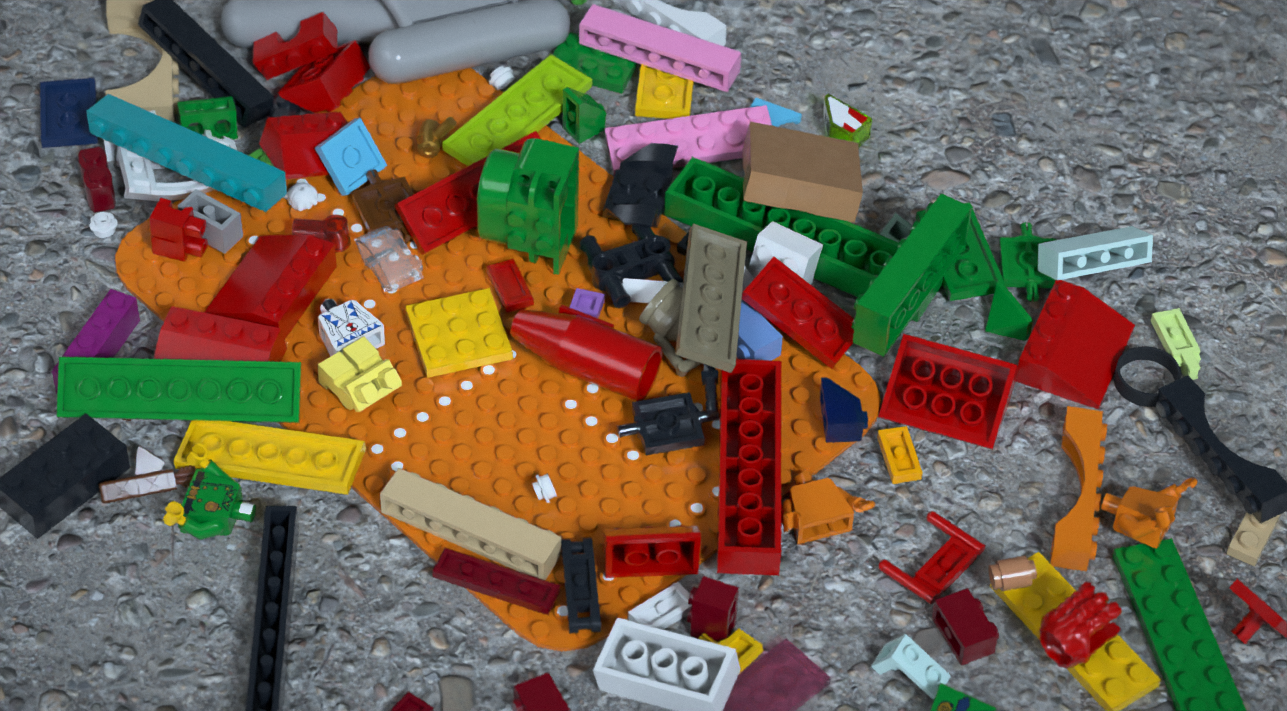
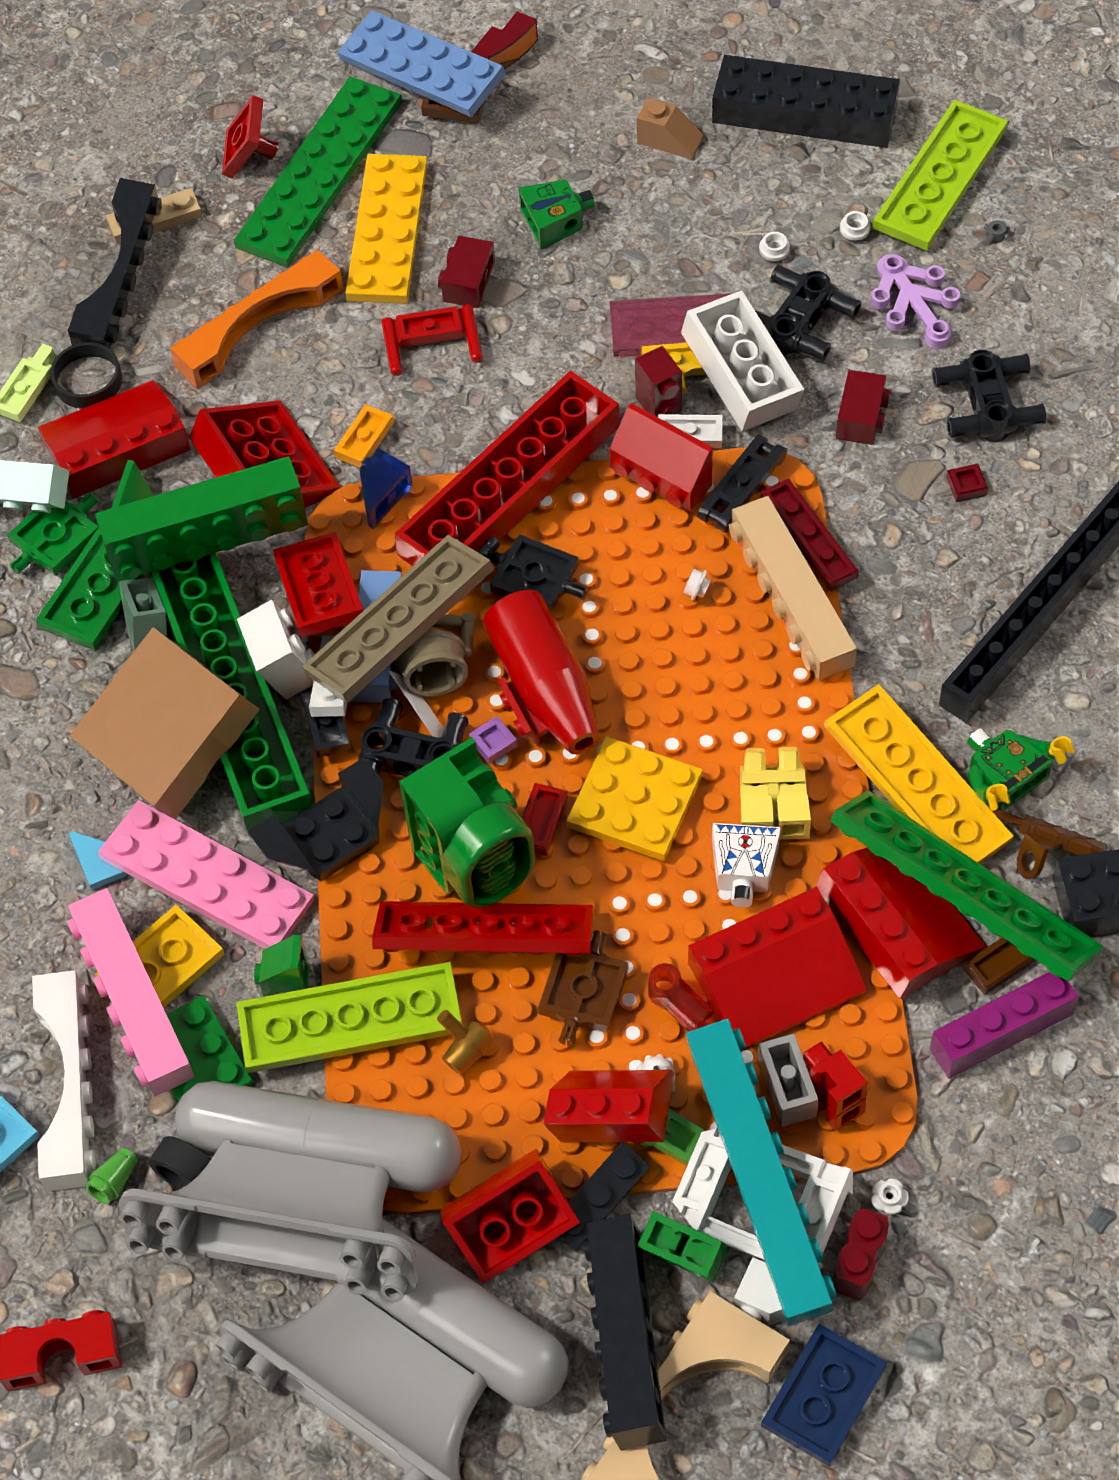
camera: 135 degrees left, 10 degrees up
(314, 41) = (487, 1250): red arch -> none
(350, 156) = (581, 1060): medium azure plate -> none
(389, 258) = (638, 910): clear brick -> none
(501, 77) = (316, 1087): white plate -> none
(819, 509) = (476, 422): orange torso -> none
(845, 121) = (47, 786): slope -> none
(912, 661) = (543, 272): light aqua bracket -> none
(1012, 573) = (395, 269): nougat brick -> none
(1079, 626) = (399, 187): red piece -> none
(1146, 513) = (237, 255): orange torso -> none

